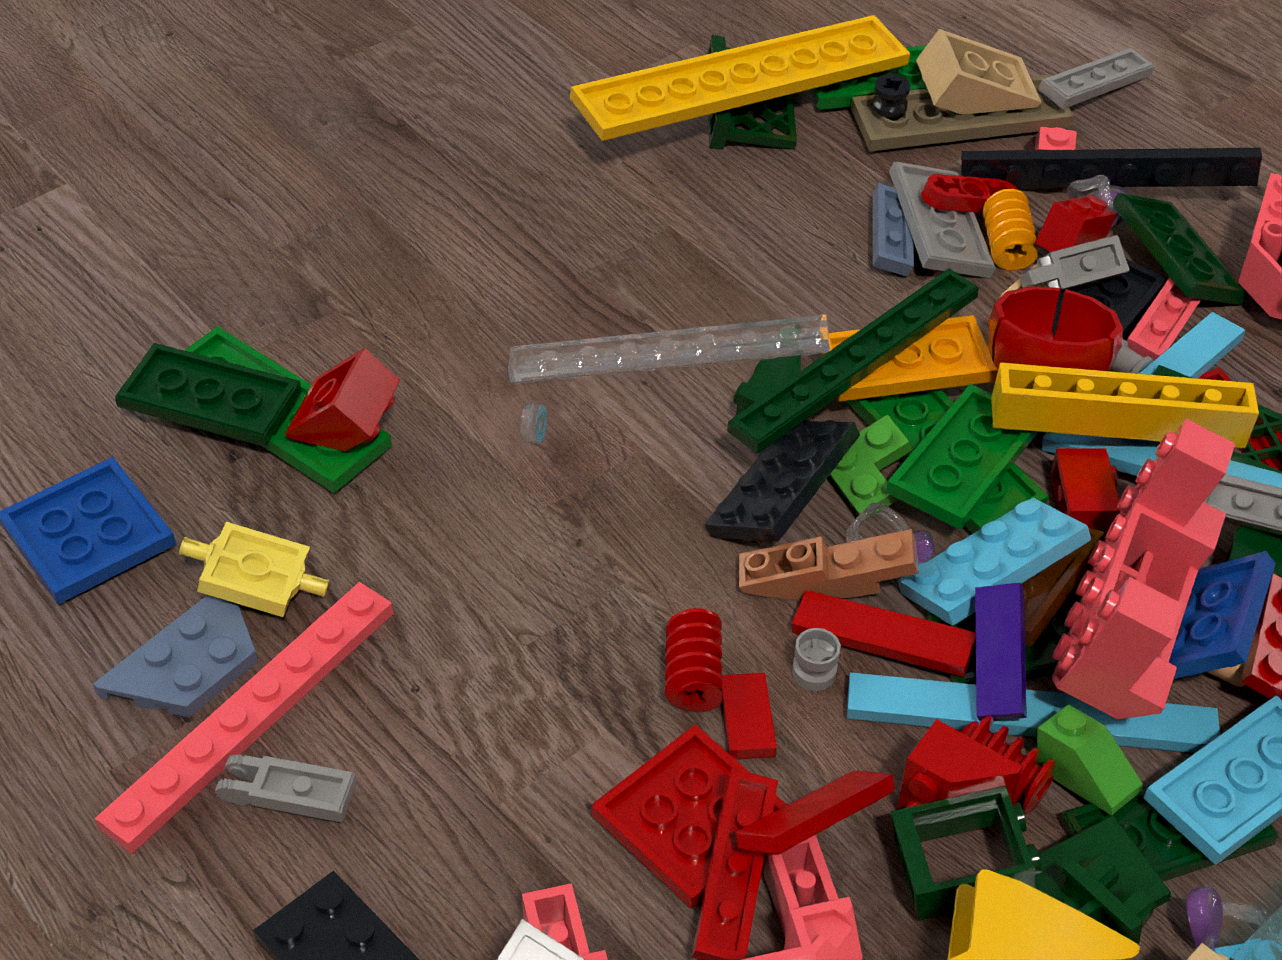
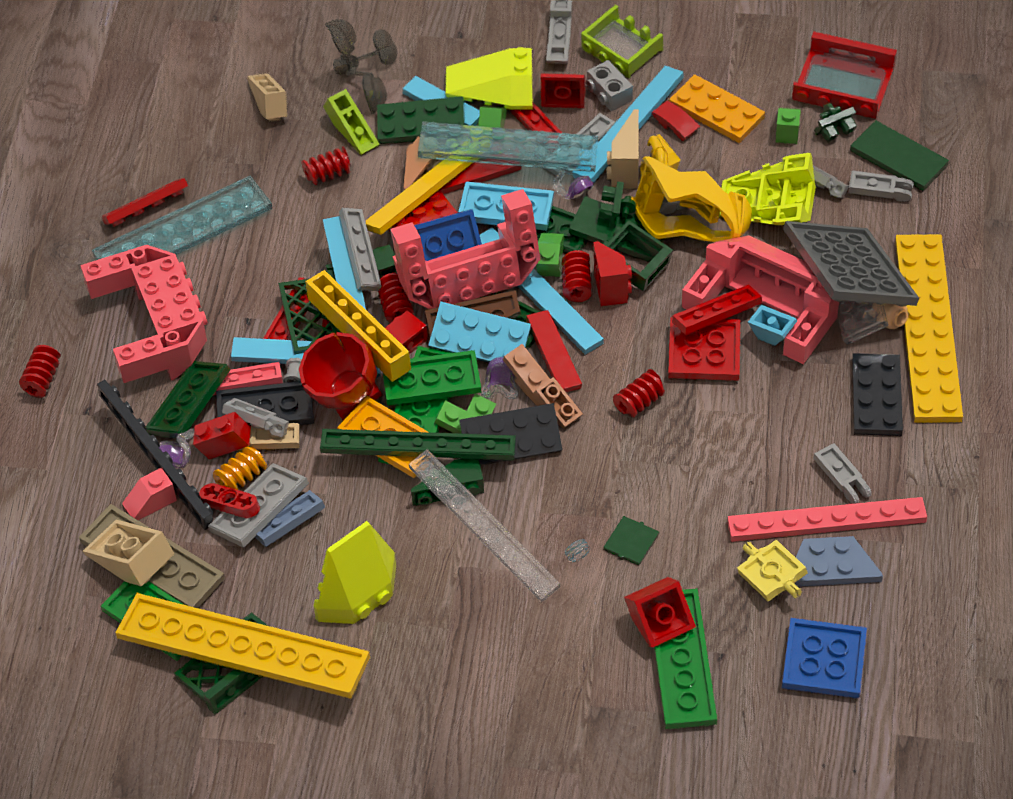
camera: 130 degrees left, 5 degrees up
(209, 394) = (710, 678): dark green tile -> none
(489, 496) = (631, 540): none -> dark green piece
(619, 907) = (771, 325): none -> medium azure slope
(712, 200) = (356, 577): none -> neon yellow wedge
(748, 716) = (640, 364): red tile -> none
(815, 812) = (669, 299): red tile -> none
(816, 659) = (592, 361): light grey wheel -> none
(891, 95) = (185, 585): black wheel -> none
(1000, 652) = (532, 296): dark purple tile -> none
(1096, 78) = (60, 517): light grey tile -> none

